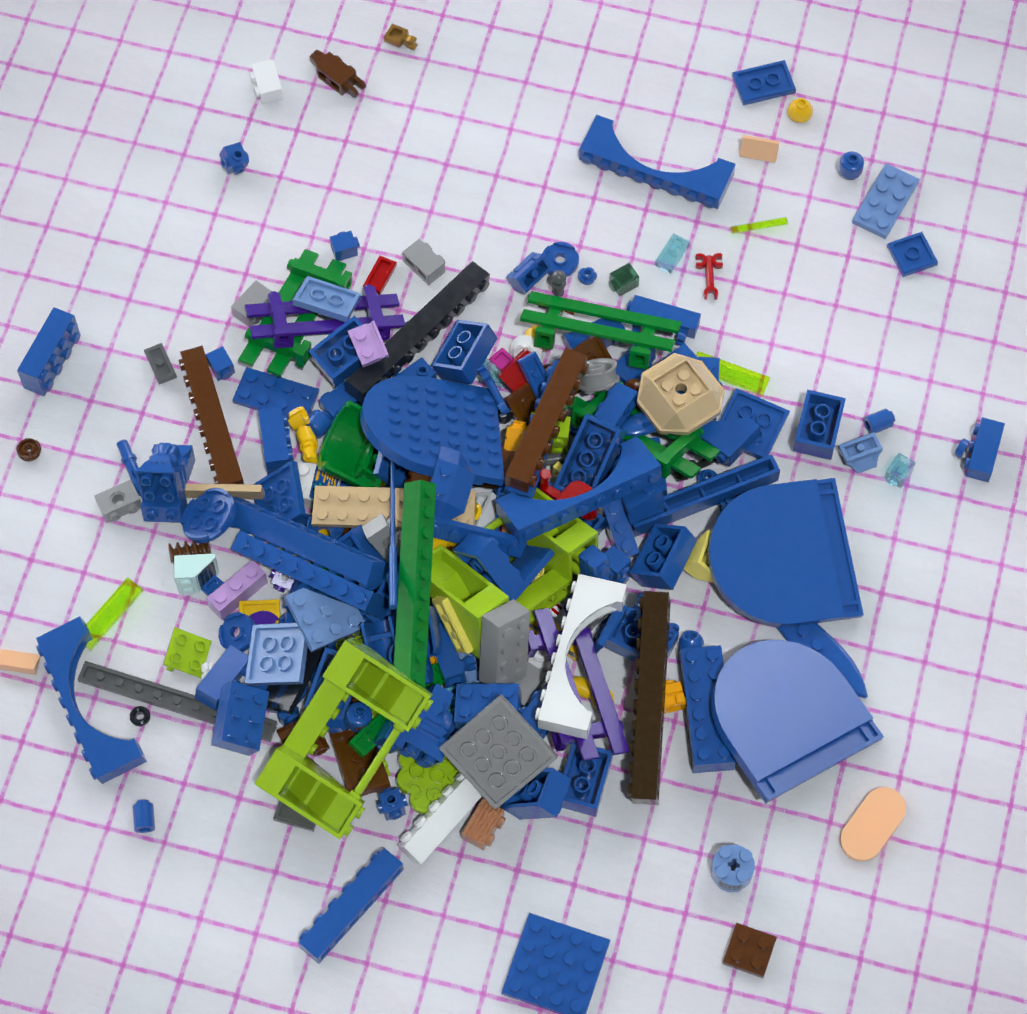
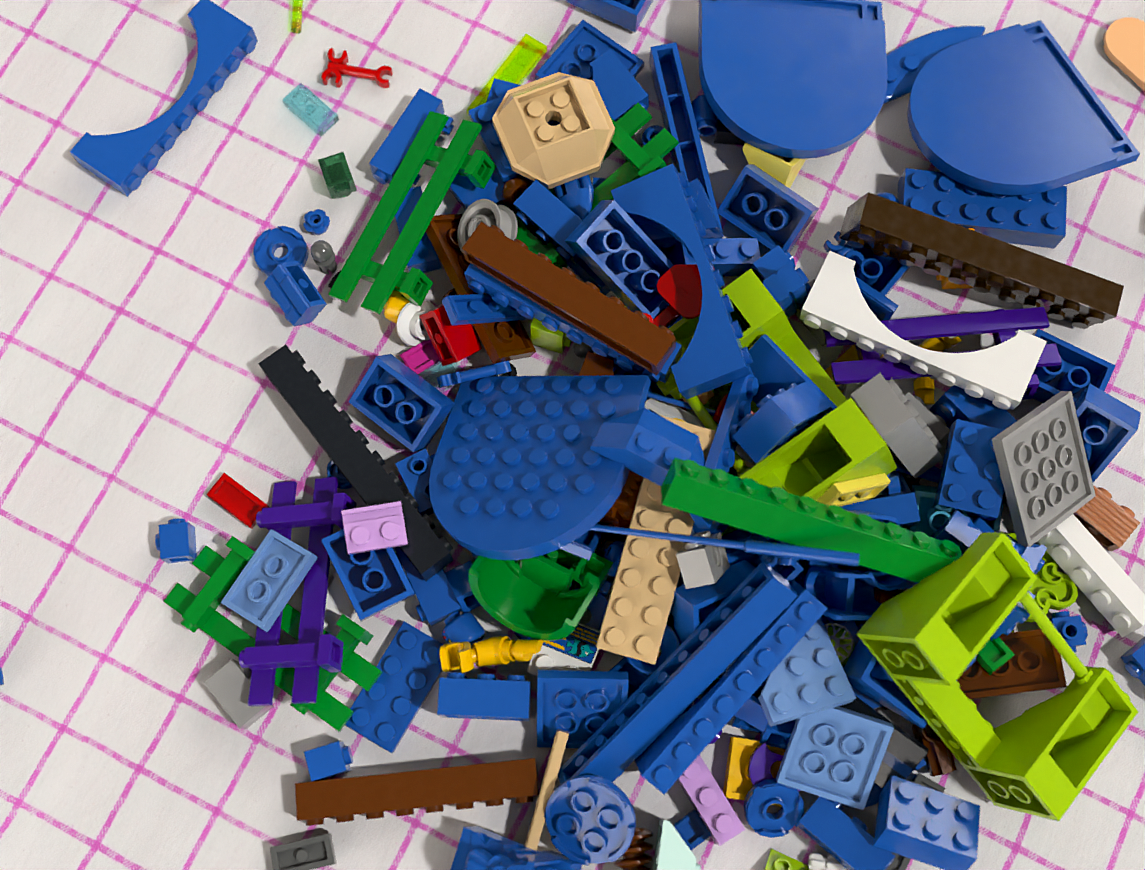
camera: 80 degrees left, 10 degrees up
(424, 261) = (235, 433): light grey brick -> none
(514, 435) = (554, 357): light orange brick -> none

